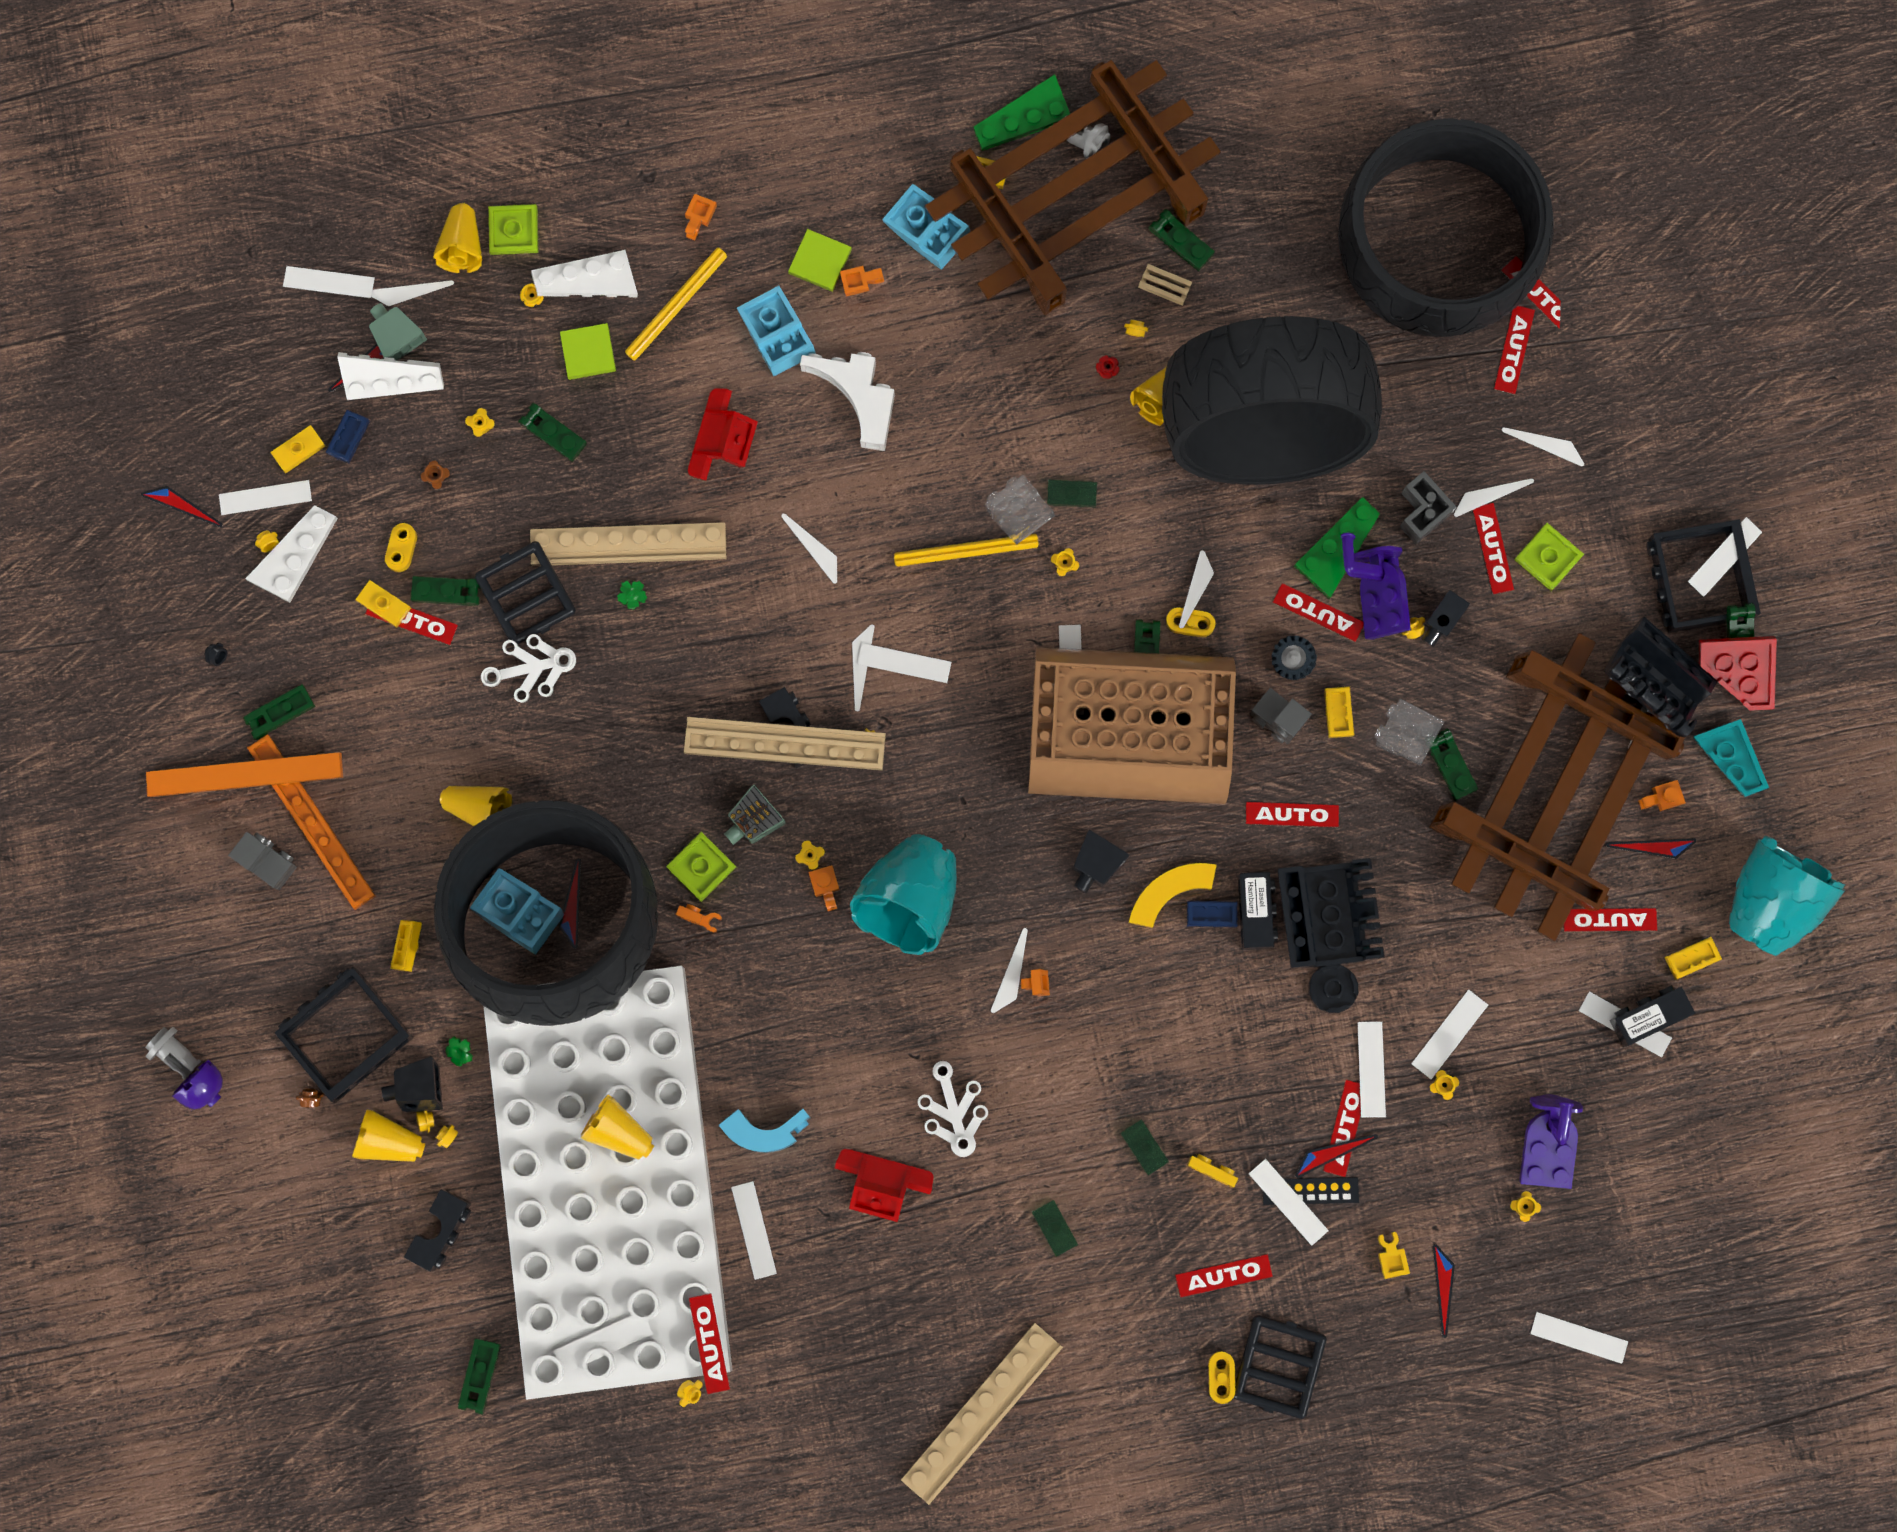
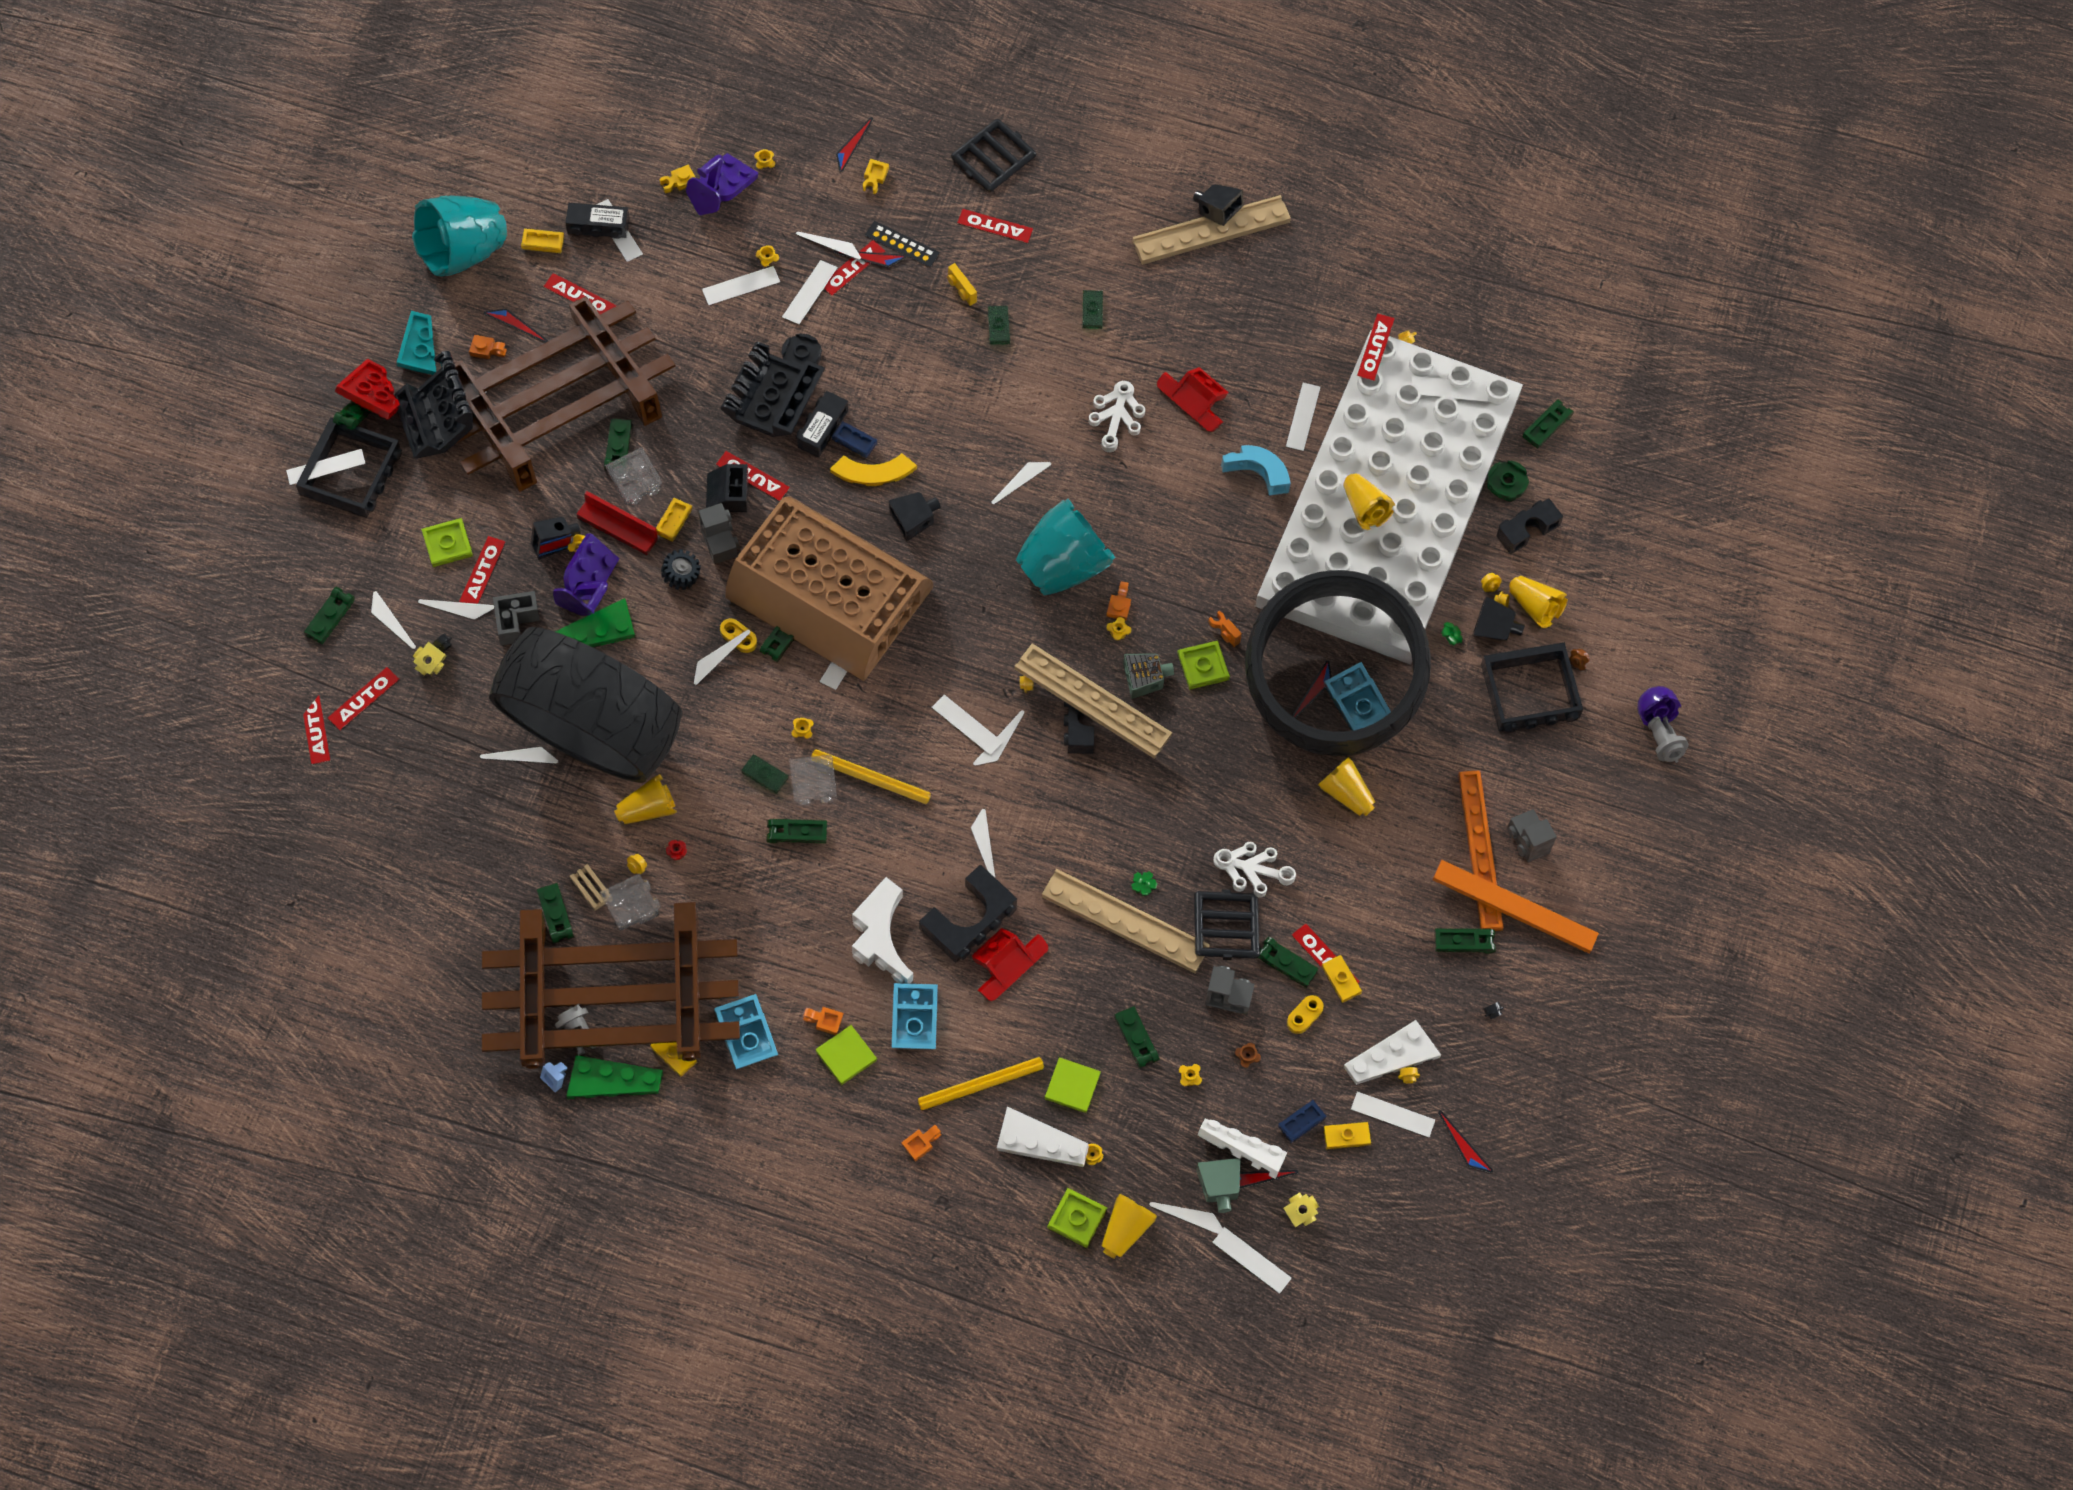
camera: 155 degrees left, 15 degrees down
(302, 345) = (1294, 1214): none -> light yellow brick
(406, 945) = (1453, 723): yellow plate -> none
(478, 1285) = (1505, 490): none -> dark green plate
(484, 521) = (1228, 992): none -> dark grey brick
(779, 427) = (958, 940): none -> black arch
(989, 1445) = (1219, 203): none -> black torso
(1002, 451) = (797, 831): none -> dark green plate
(1037, 983) = (1008, 460): orange tile -> none
(1078, 85) = (553, 1075): none -> light blue tile
(1114, 285) = (631, 902): none -> clear plate
(1221, 1377) = (1035, 168): yellow plate -> none
(1288, 1202) = (922, 244): white sticker -> none
(1304, 775) = (729, 487): none -> black slope
(1318, 612) = (639, 596): red sticker -> none
(1376, 1145) = (841, 246): none -> white sticker
(1392, 673) = (617, 523): none -> red panel
(1470, 145) = (343, 719): black tyre -> none
(1475, 416) = (436, 663): none -> light yellow brick
(1477, 445) = (443, 642): none -> black plate
(1579, 1337) = (783, 73): white sticker -> none
(1599, 1128) = (678, 179): none -> yellow plate
(1608, 411) = (329, 616): none -> dark green plate

